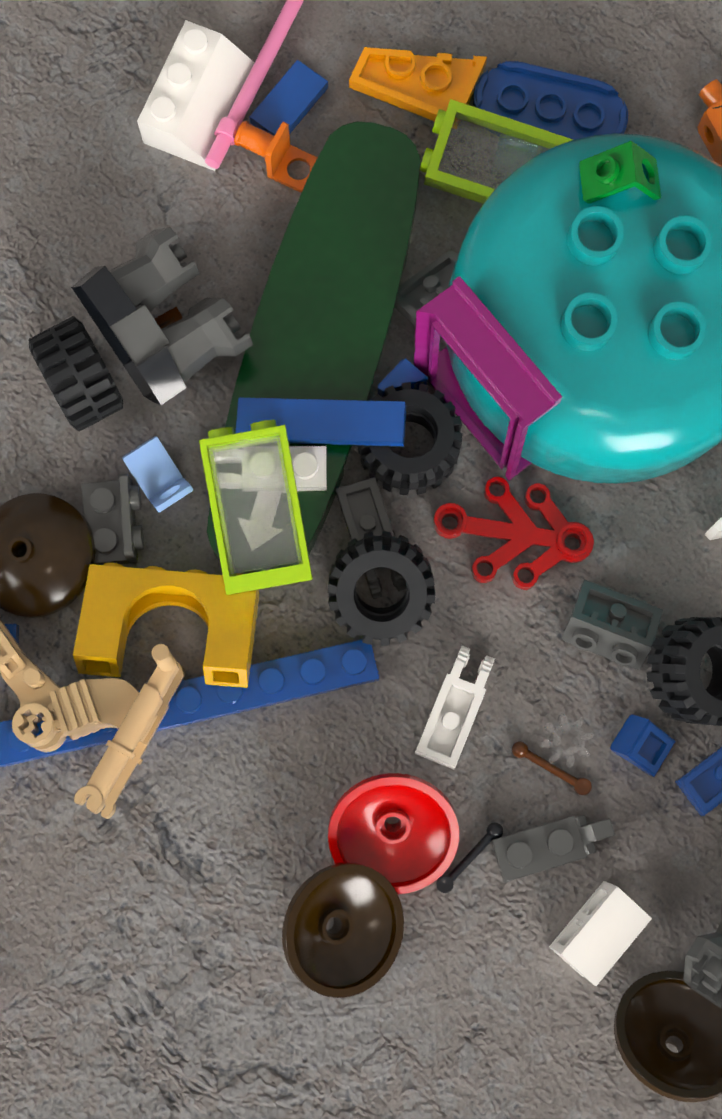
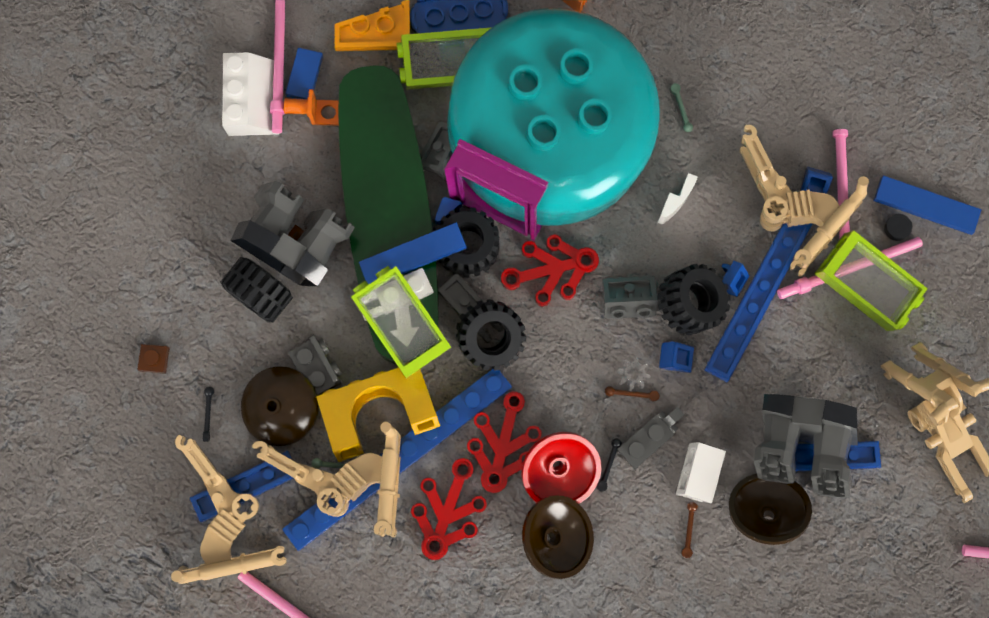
camera: 25 degrees left, 0 degrees up
(44, 661) = (317, 463): none -> sand green hinge
(157, 474) = (330, 327): light blue bracket -> none
(199, 818) = (446, 513): none -> red plant
(323, 758) = (503, 446): none -> red plant
(454, 713) = (563, 387): white hinge -> none
(526, 1039) = (687, 551): none -> reddish brown hinge
(618, 171) = (521, 41): green bracket -> none

